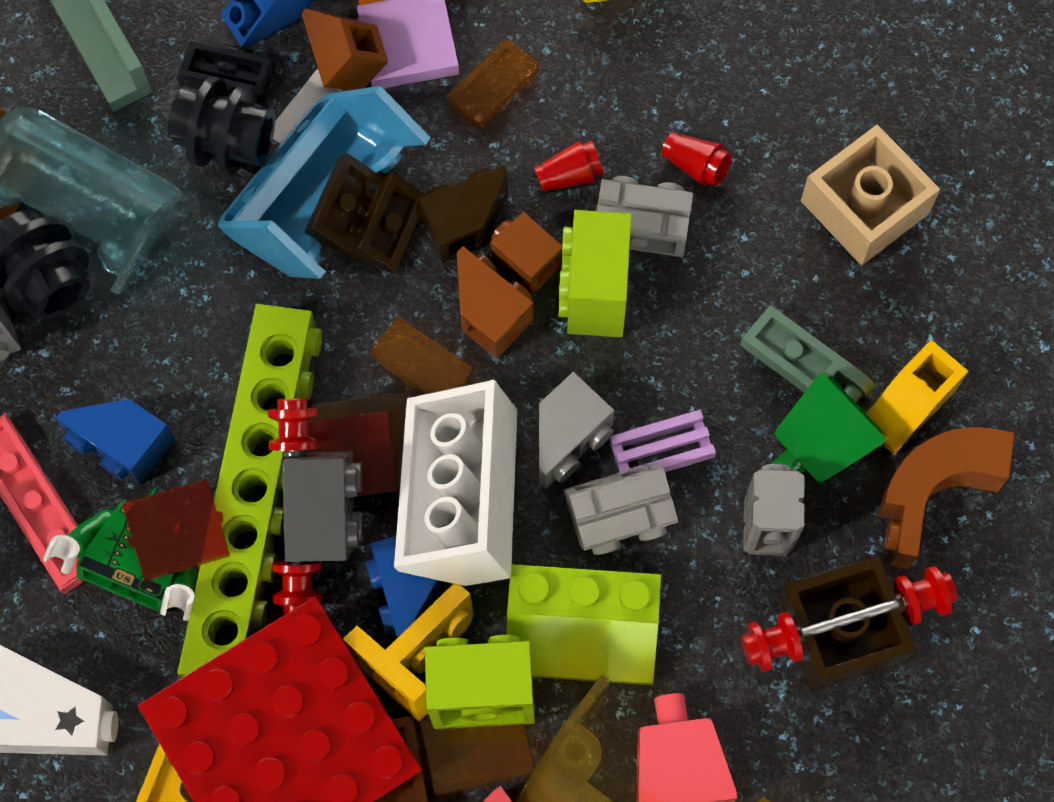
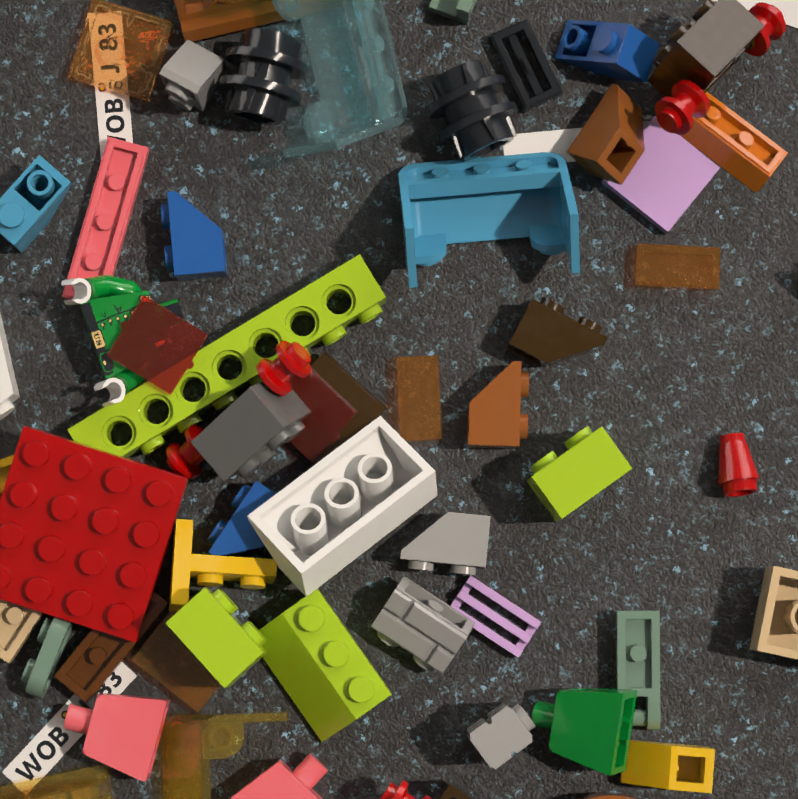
camera: 45 degrees right, 15 degrees up
(366, 214) = (495, 267): dark brown slope -> none
(526, 252) = (558, 404): dark orange brick -> none
(570, 167) = (652, 381): red cone -> none
(657, 213) = (657, 467): light grey brick -> none

